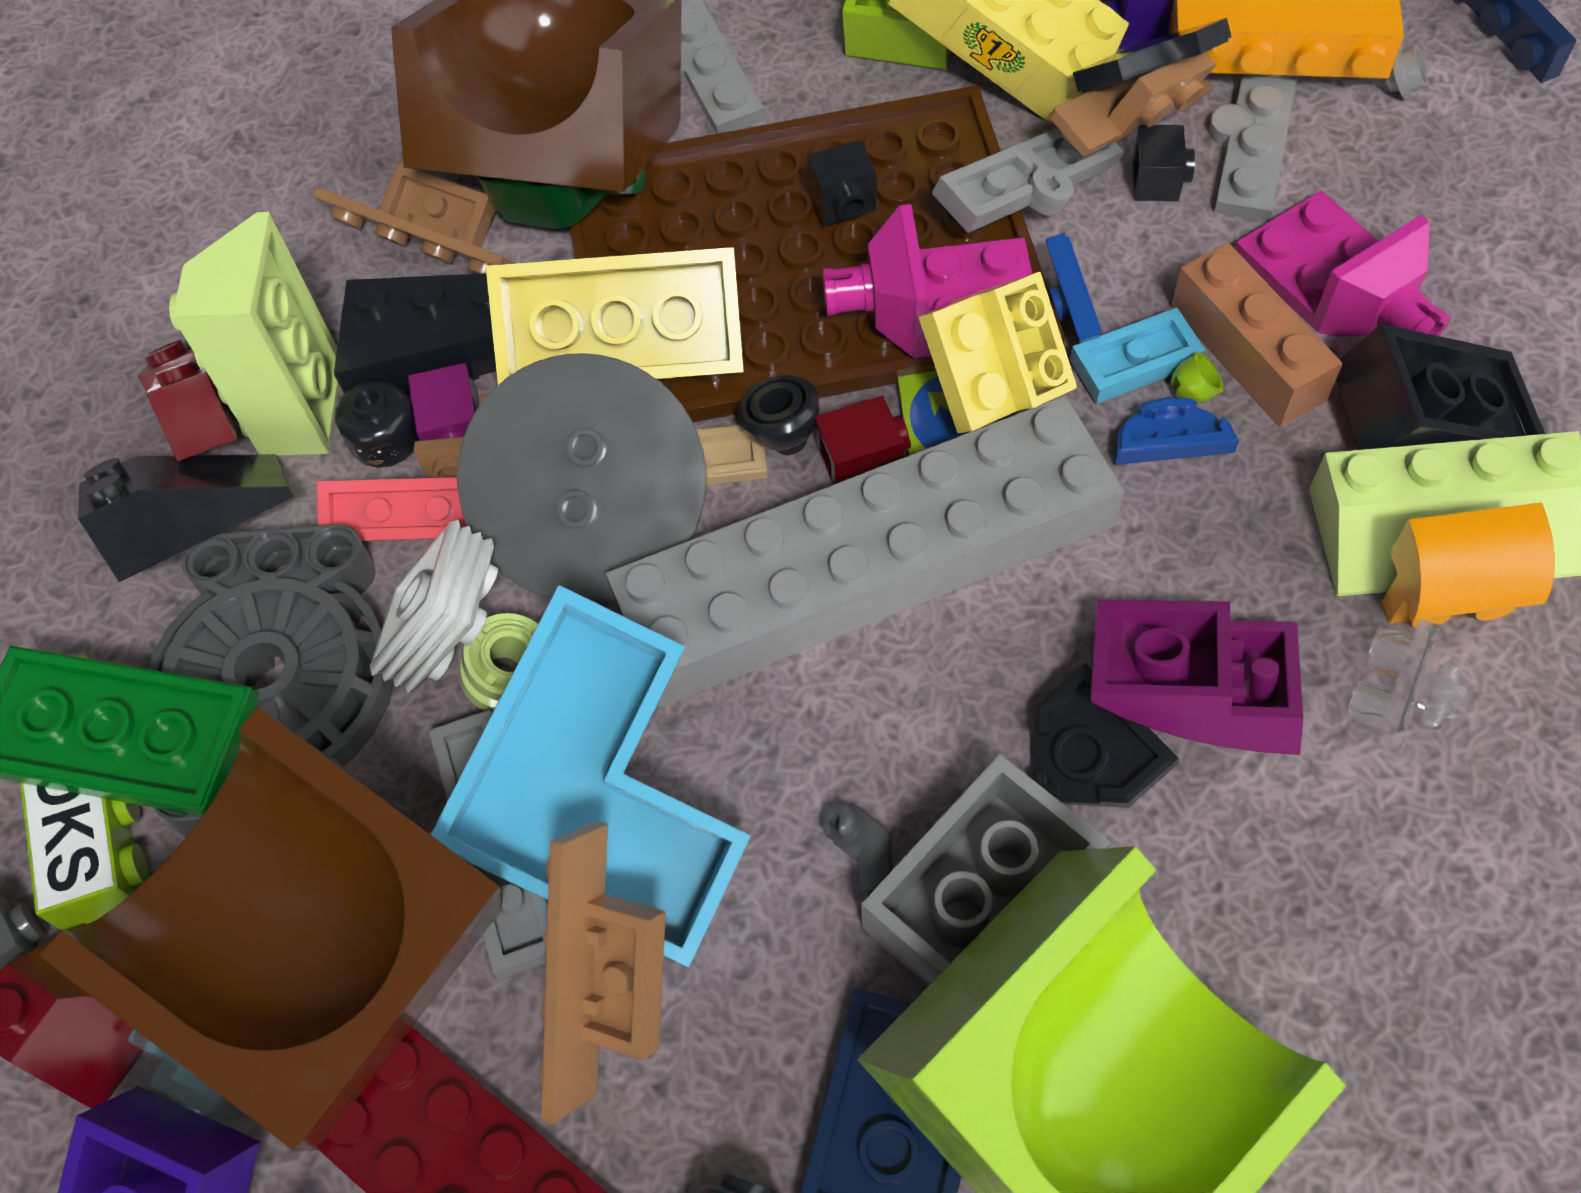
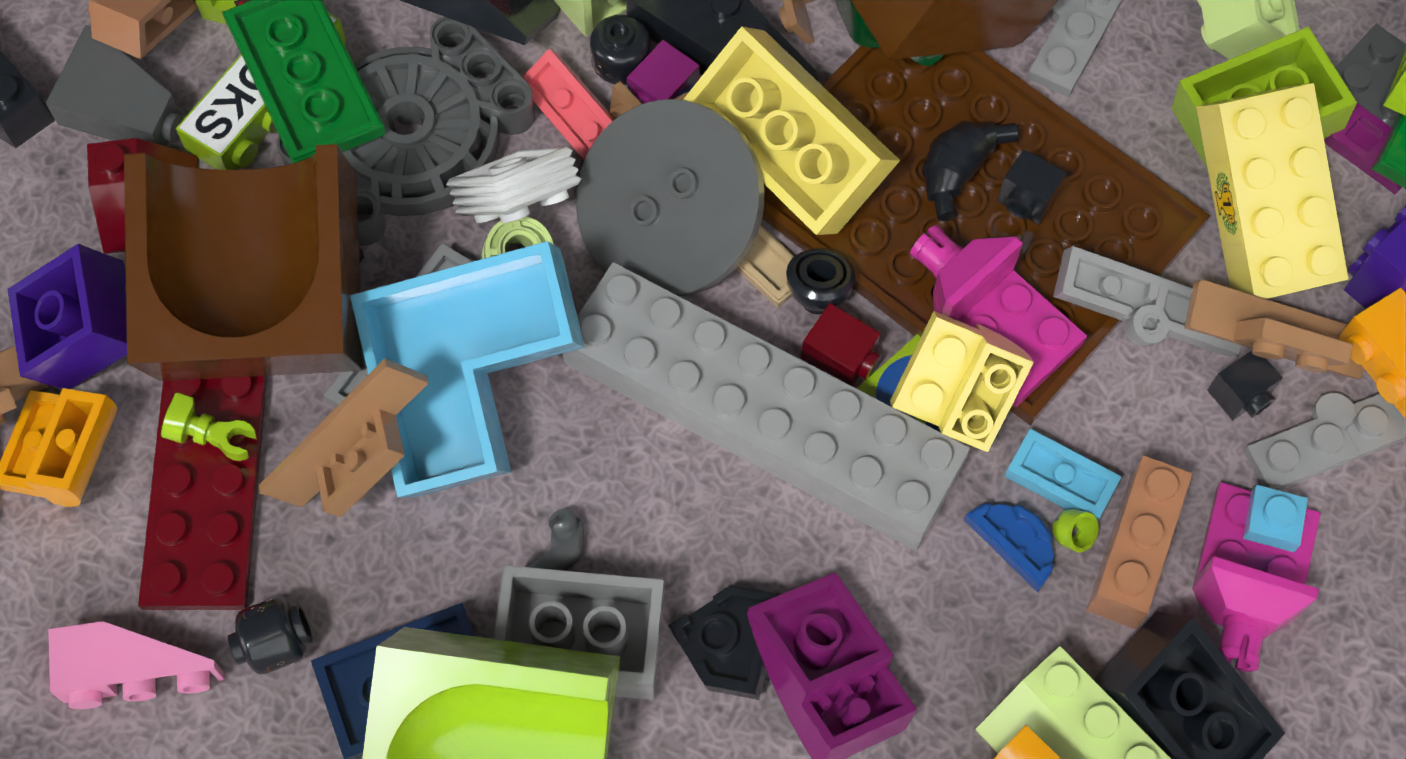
camera: 45 degrees right, 5 degrees up
(394, 1153) = (183, 421): none -> lime piece
(757, 226) = (957, 157): none -> black piece
(1071, 295) = (1074, 400): blue plate -> none
(1152, 55) = (1310, 311): black tile -> none
(1311, 217) = (1275, 518): none -> medium azure plate

